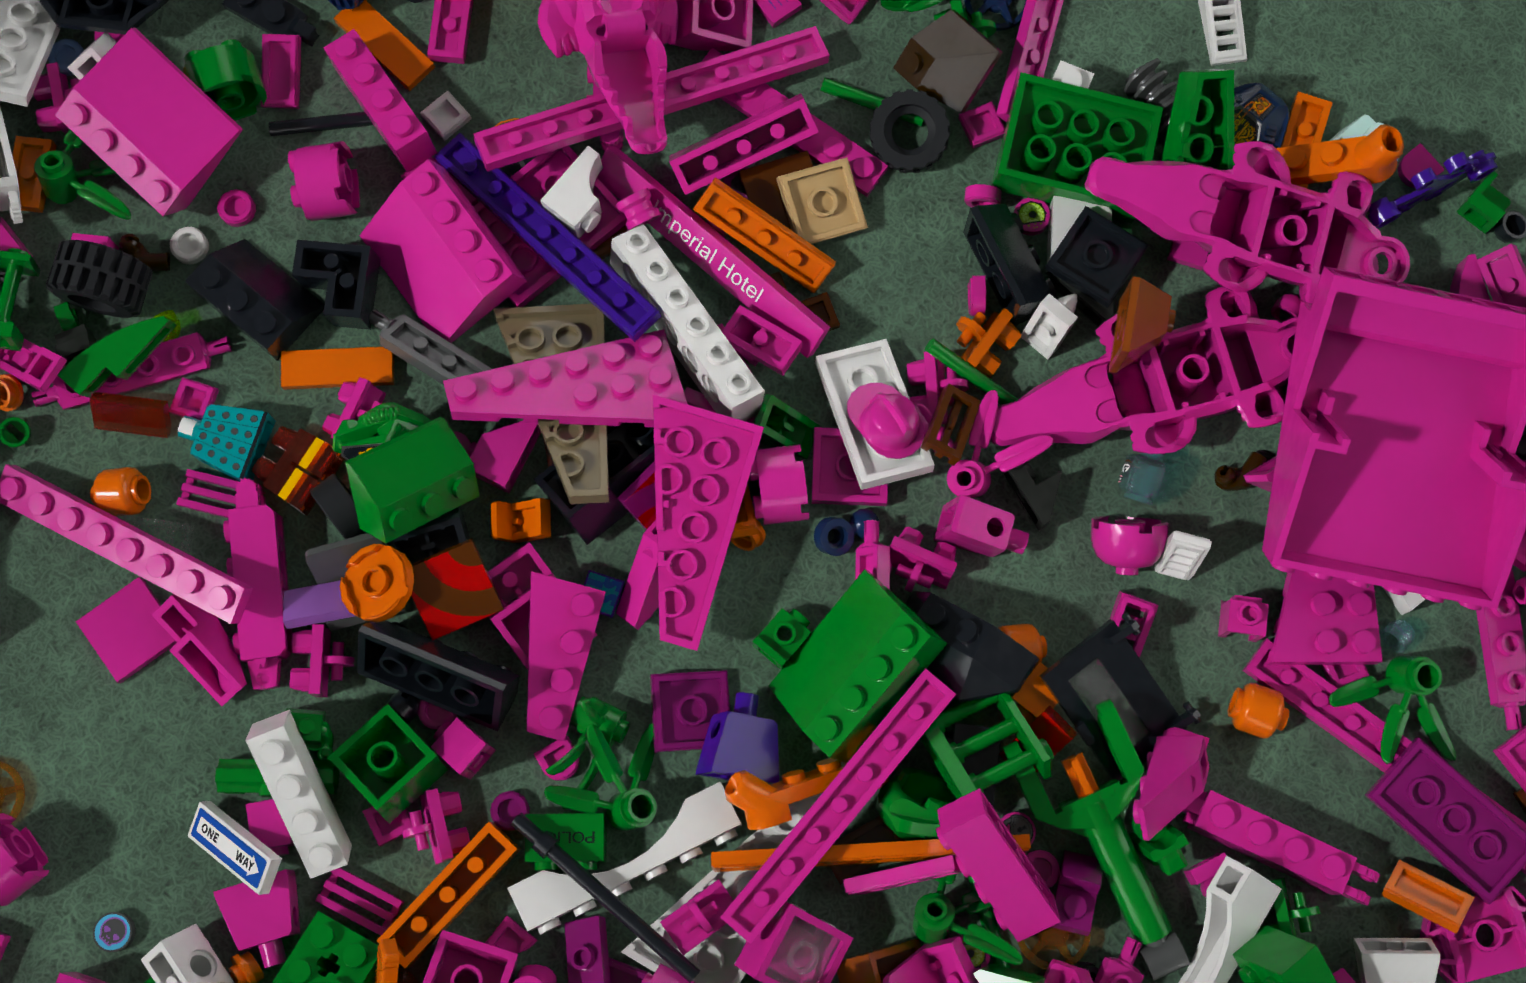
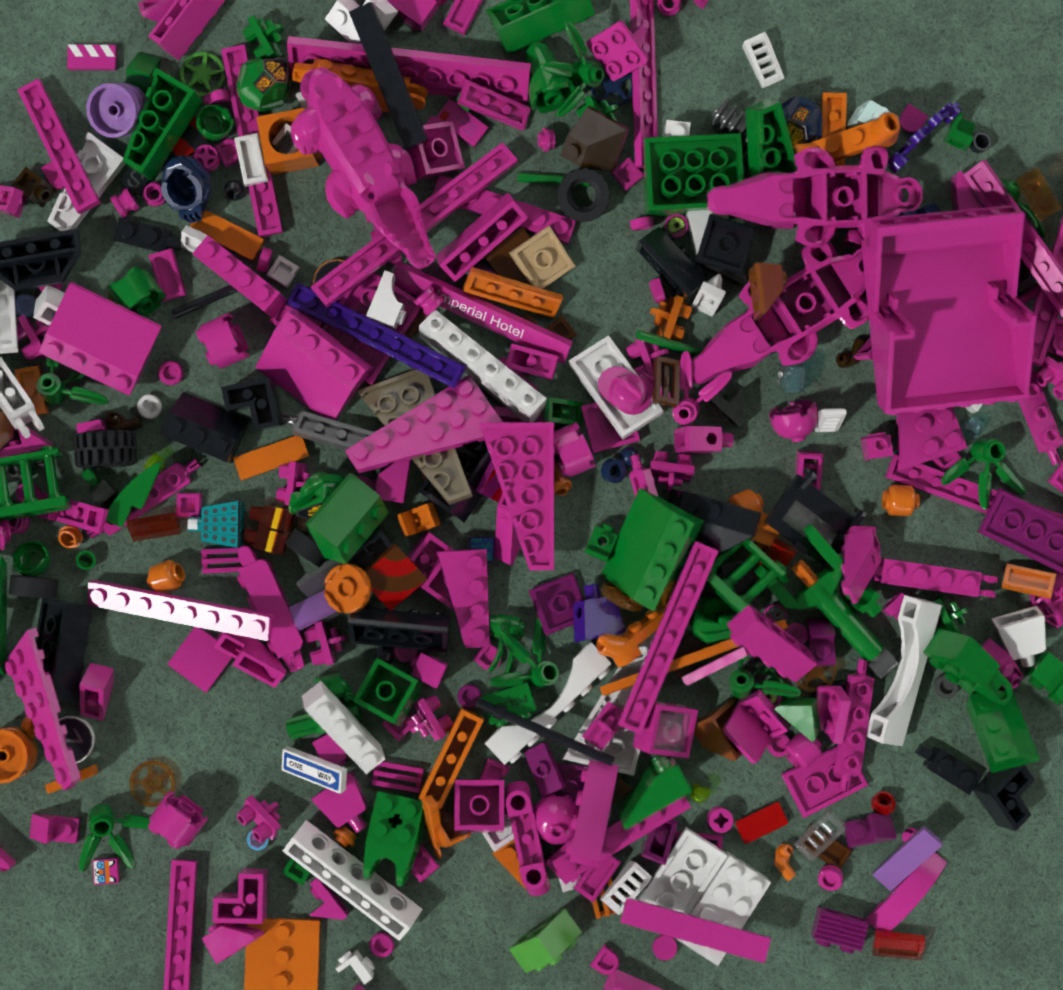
camera: 15 degrees left, 10 degrees up
(134, 895) = (263, 815): none -> dark pink hips
(329, 28) = (191, 238): none -> white plate
(424, 90) = (264, 259): none -> dark pink tile
(786, 726) = (619, 597): none -> clear orange wheel
(879, 43) = (546, 139): none -> dark pink plate

